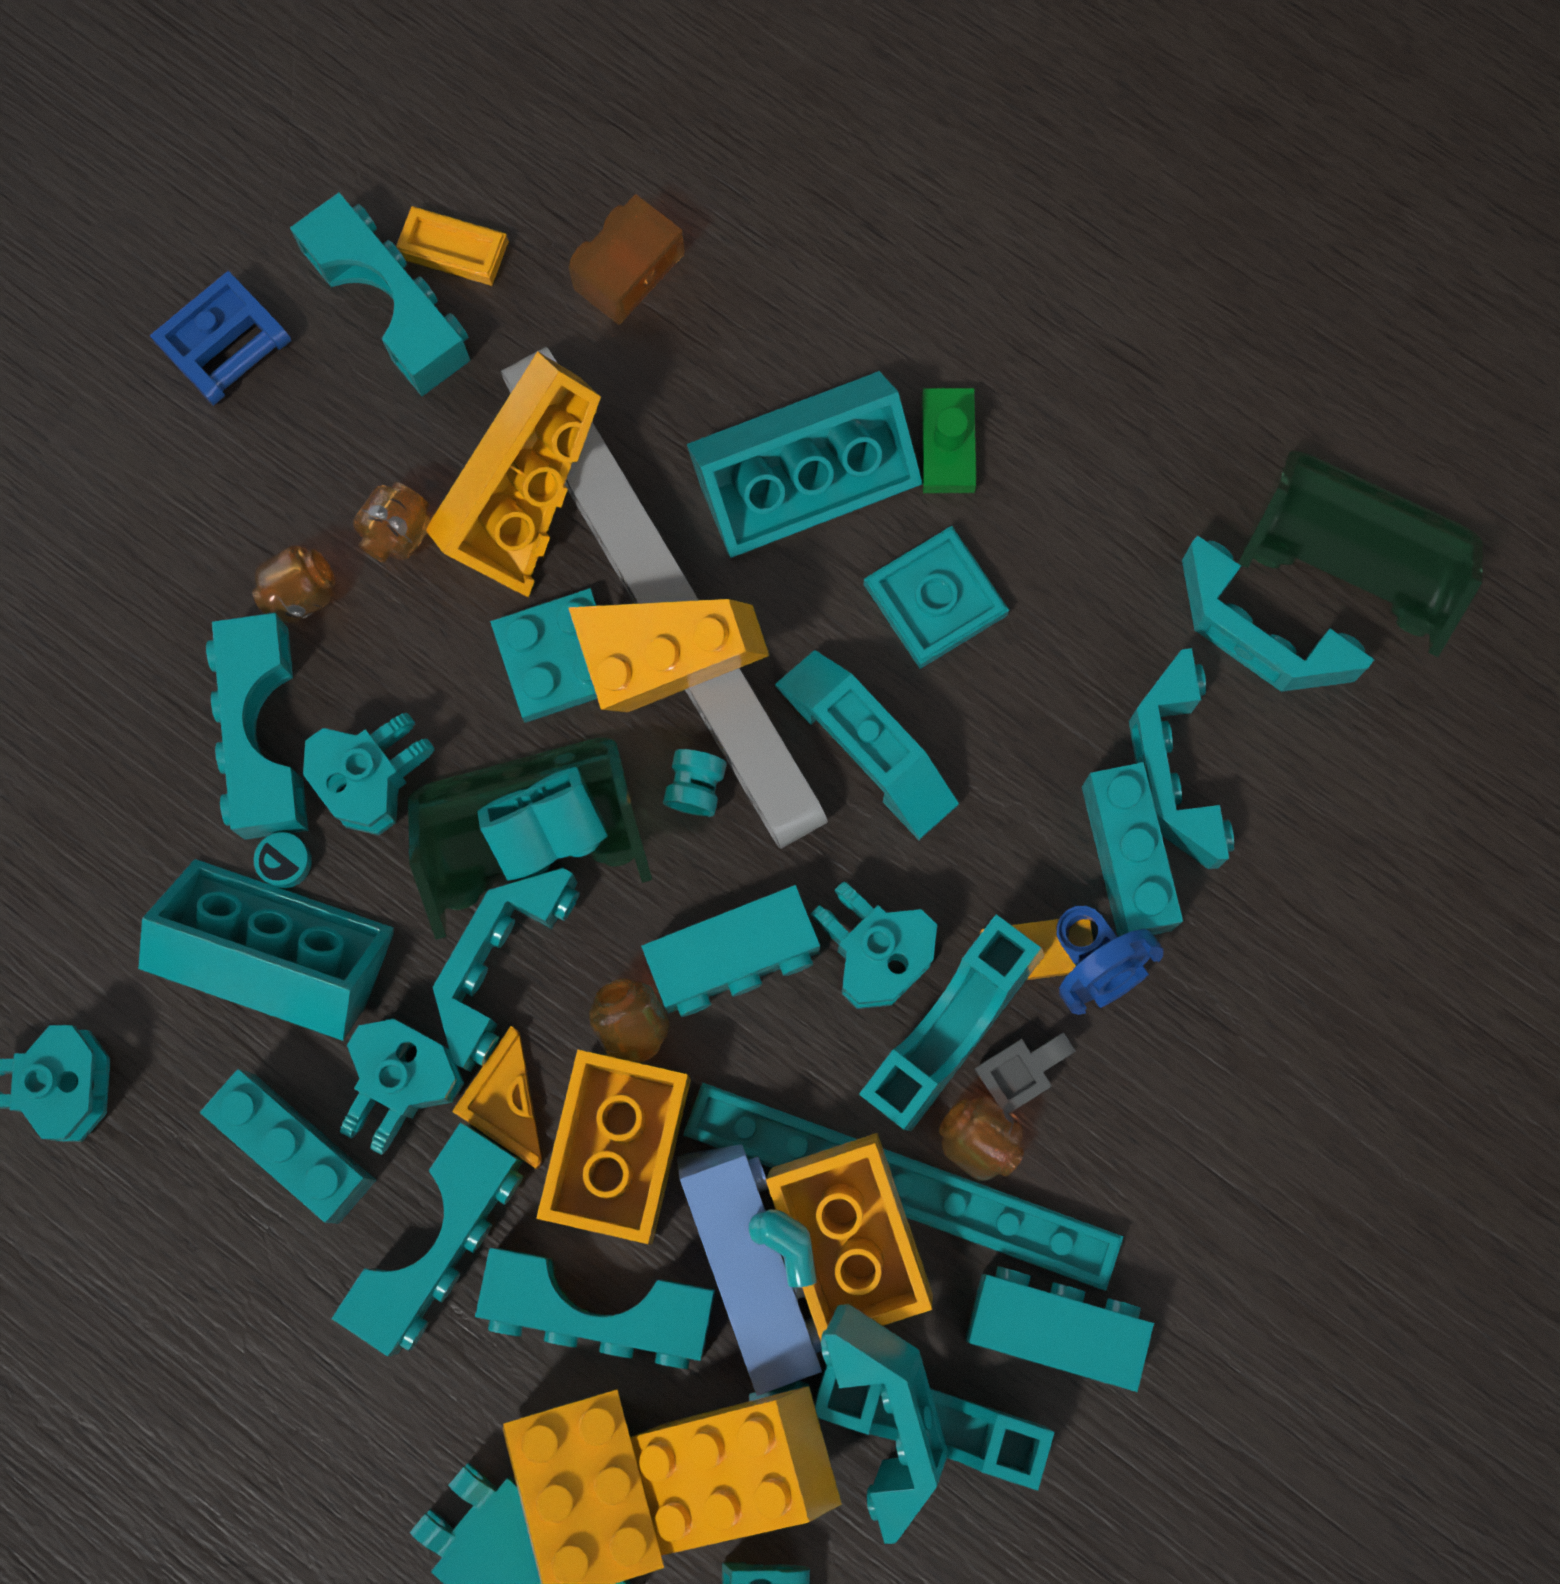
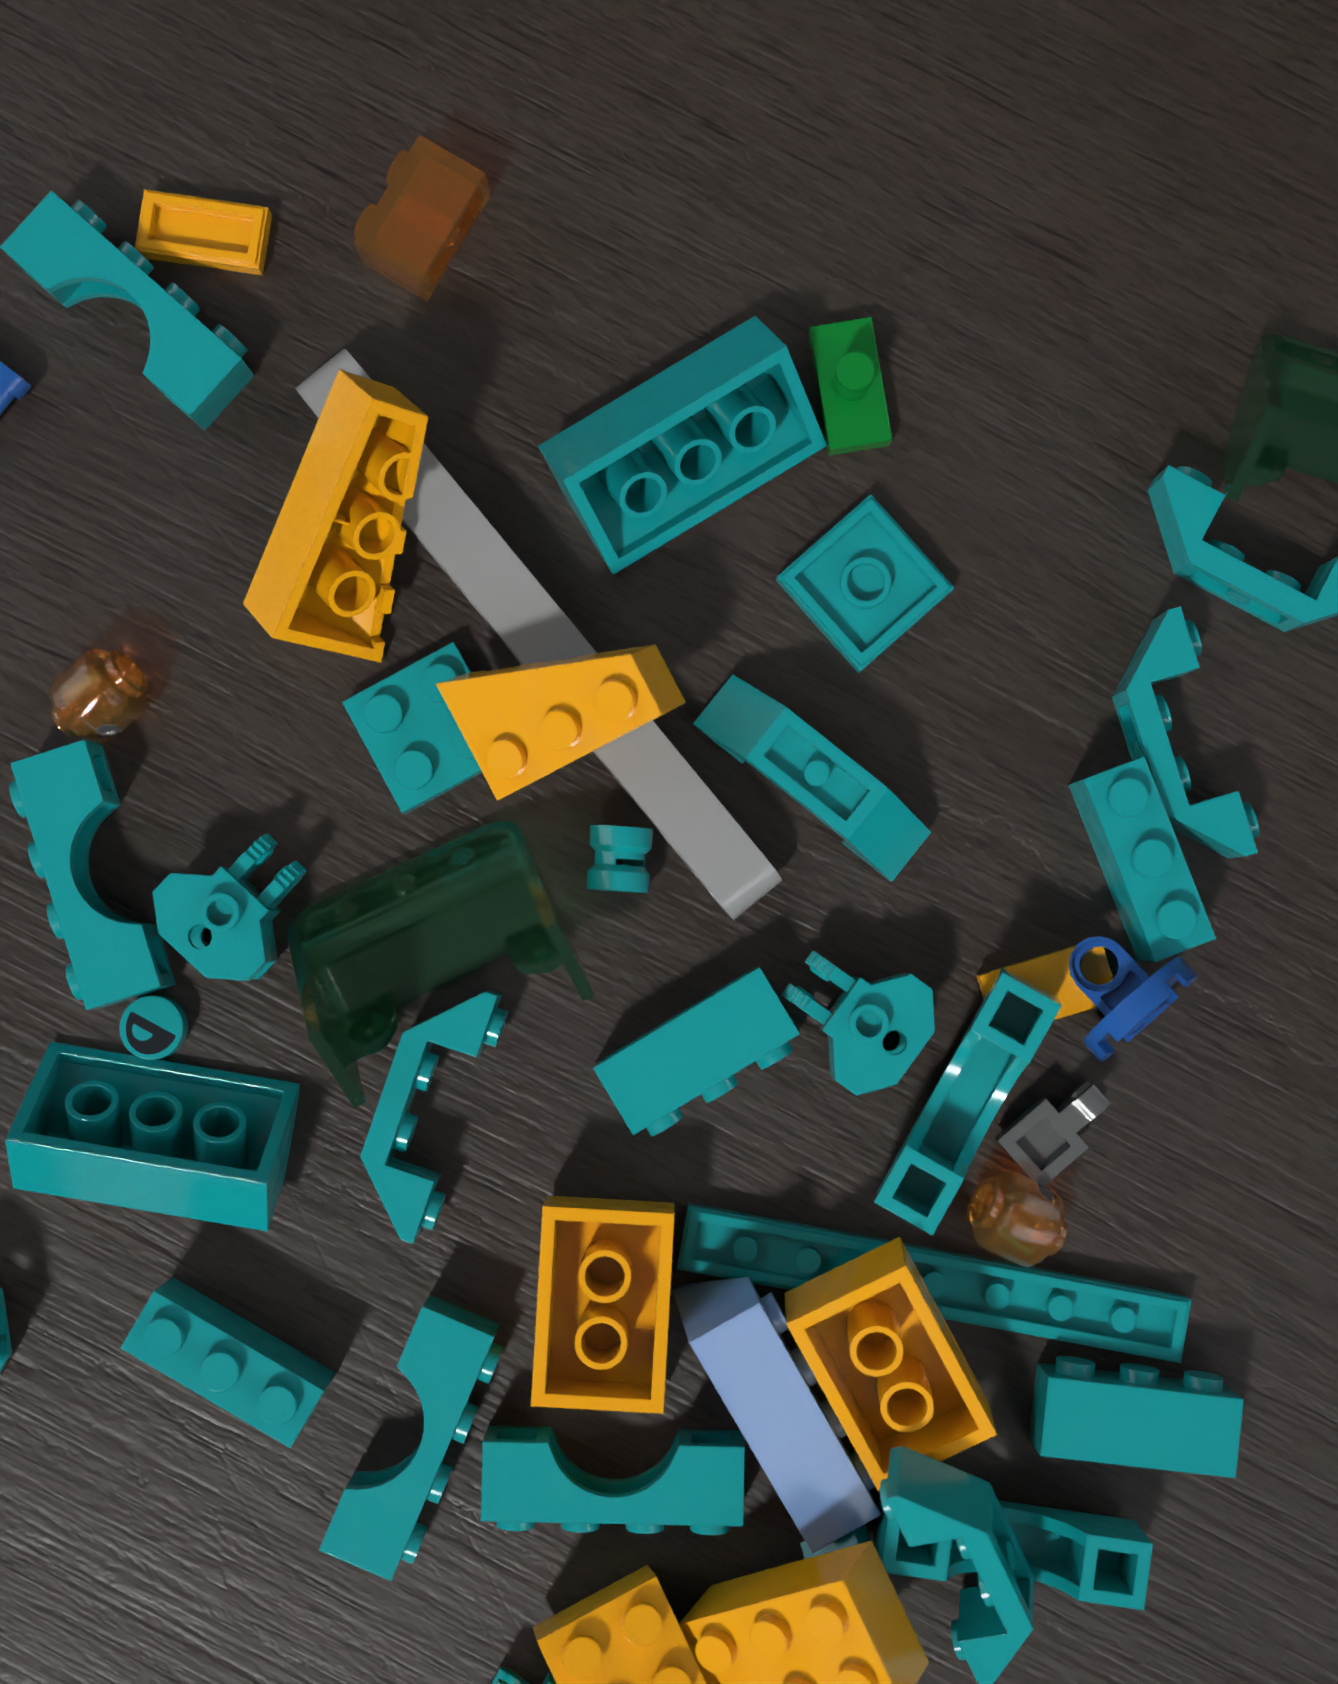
camera: 15 degrees left, 10 degrees up
(392, 522) = (201, 601): clear orange head -> none
(403, 1086) = (339, 1267): teal hinge -> none
(502, 1103) = (463, 1265): light orange tile -> none
(542, 824) = (451, 943): teal brick -> none
(628, 1020) = (593, 1153): clear orange head -> none
(790, 1240) = (822, 1389): teal arm -> none

